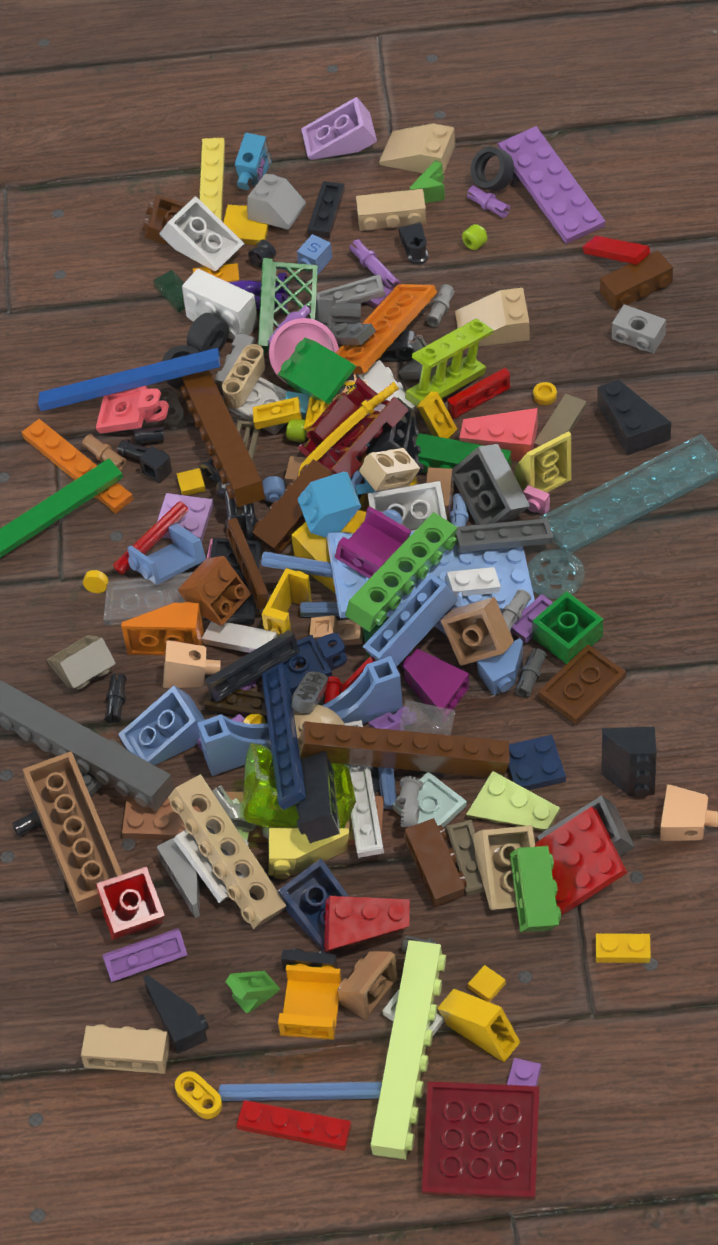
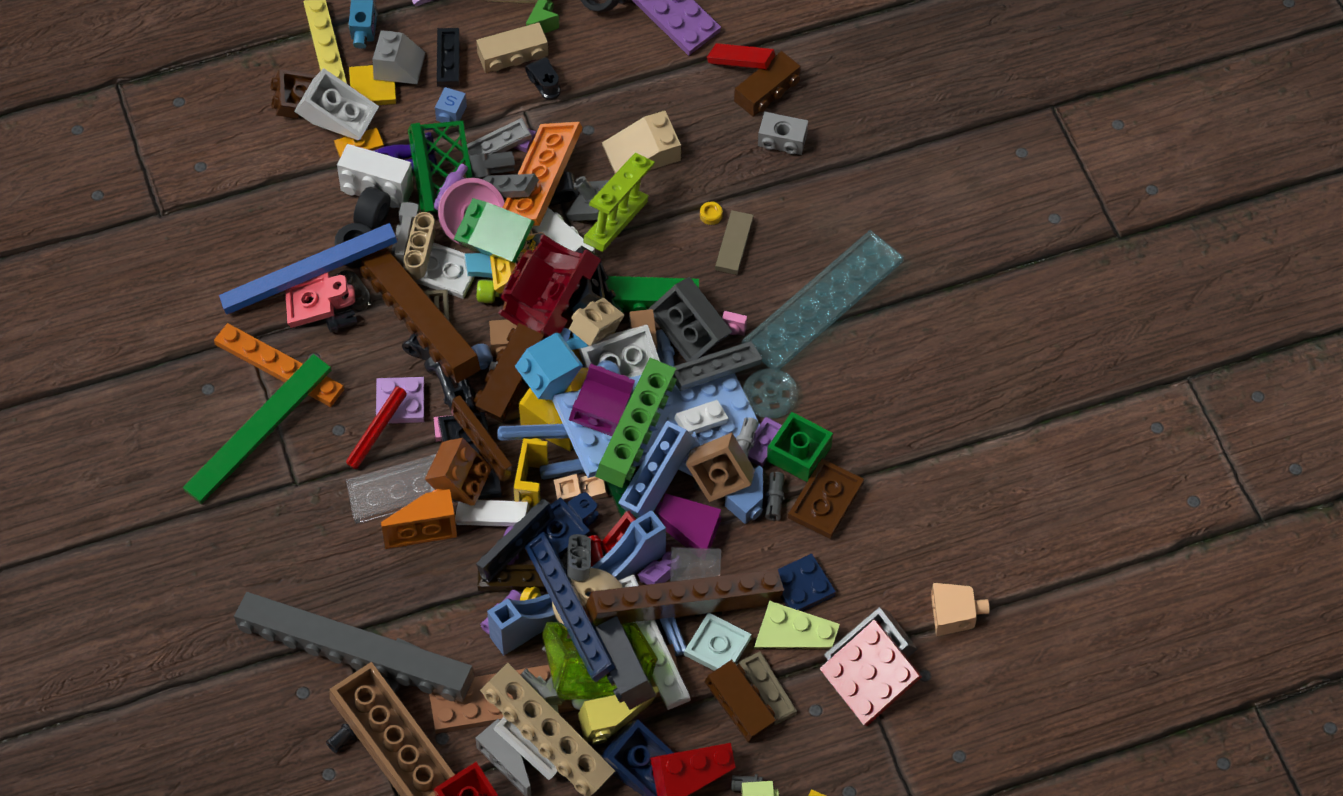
camera: 20 degrees left, 5 degrees up
(82, 661) = (345, 565): slope -> none
(95, 581) = (334, 481): yellow tile -> none
(103, 451) = (301, 346): medium nougat pin -> none
(115, 698) = (388, 595): black pin -> none
(130, 450) = (330, 340): black pin -> none
(156, 464) = (358, 350): black plate -> none
(164, 728) = (446, 618): medium blue slope -> none
(171, 288) = (320, 165): clear green plate -> none
(171, 560) = (402, 445): medium blue panel -> none
(187, 665) = (450, 551): light nougat torso -> none
(191, 482) = (396, 362): yellow tile -> none
(263, 250) = (398, 113): black wheel -> none
(277, 413) = (463, 278): yellow plate -> none
(349, 423) = (557, 262): yellow sword -> none
(369, 260) = (505, 103): medium lavender pin -> none
(408, 800) = (700, 646): light grey connector -> none
(436, 416) = (619, 256): yellow plate -> none
(440, 305) = (587, 139): light grey pin -> none
(474, 237) = (601, 63): lime piece -> none
(478, 393) = (650, 224): red tile -> none
(488, 201) = (603, 23): medium lavender pin -> none
(494, 862) = (808, 691): tan slope -> none
(509, 430) = (687, 259): coral wedge -> none
(535, 889) = (840, 708): bright green brick -> none
(546, 465) = (737, 288): light yellow slope -> none
(622, 948) = (931, 746): yellow plate -> none
(630, 759) = (896, 566): black slope -> none
(632, 418) = (800, 225): black wedge -> none

